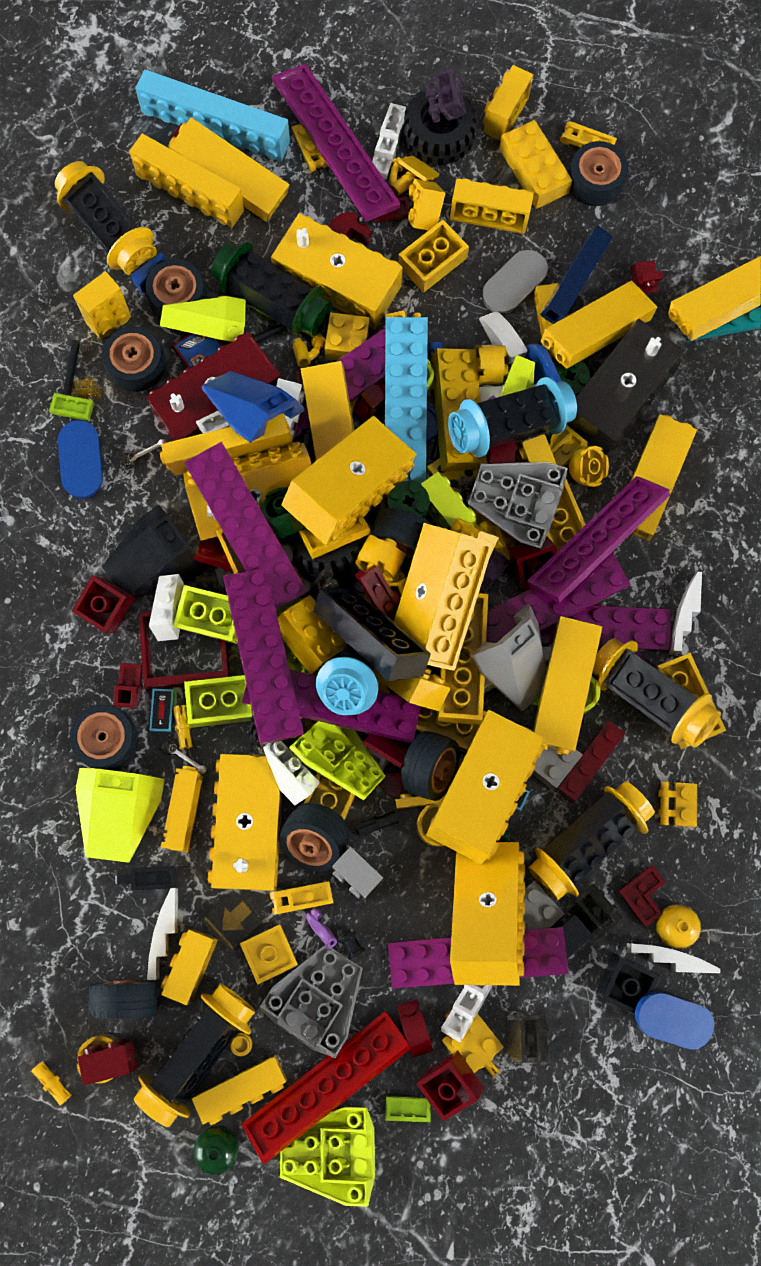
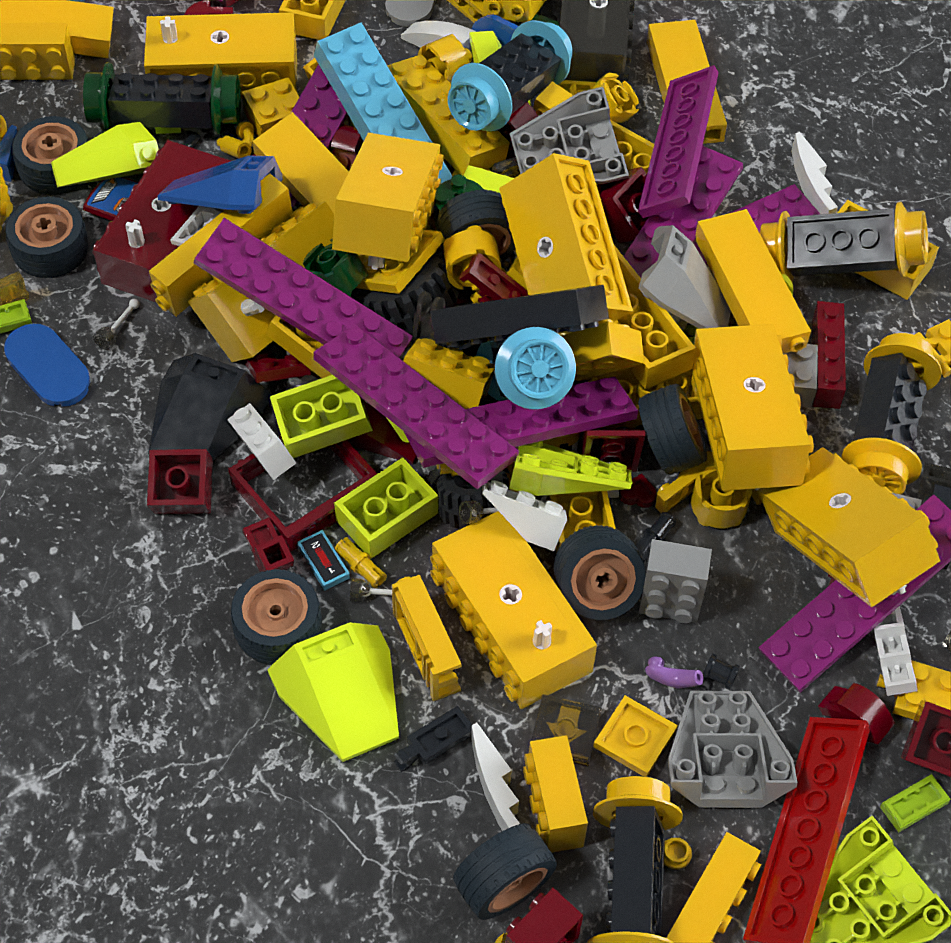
camera: 30 degrees left, 20 degrees down
(302, 897) = (628, 657): yellow plate -> none

